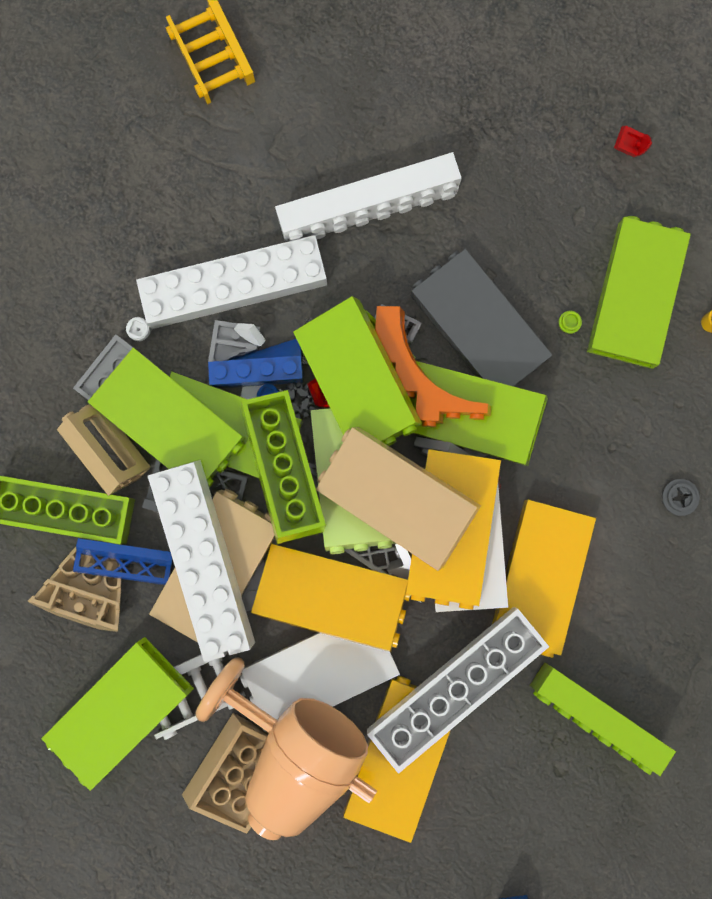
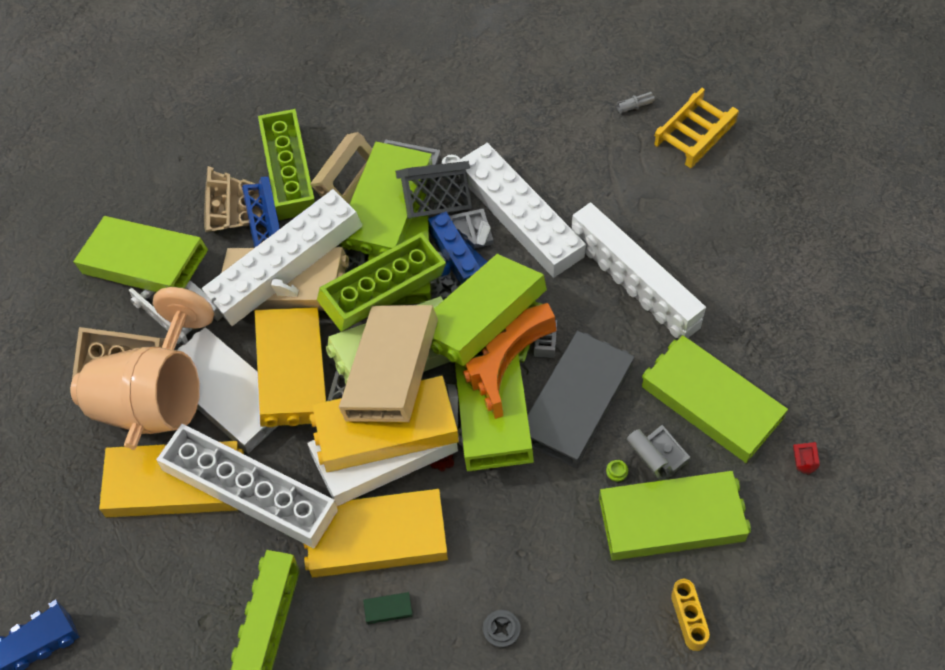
camera: 70 degrees right, 25 degrees down
(145, 96) = (635, 102): none -> light grey axle
(162, 357) = (430, 172): none -> dark grey fence
(240, 576) = (283, 289): none -> white tile
(535, 194) = (713, 398): none -> lime brick
(575, 275) = (659, 452): none -> light grey piece
(618, 593) = (387, 608): none -> dark green tile

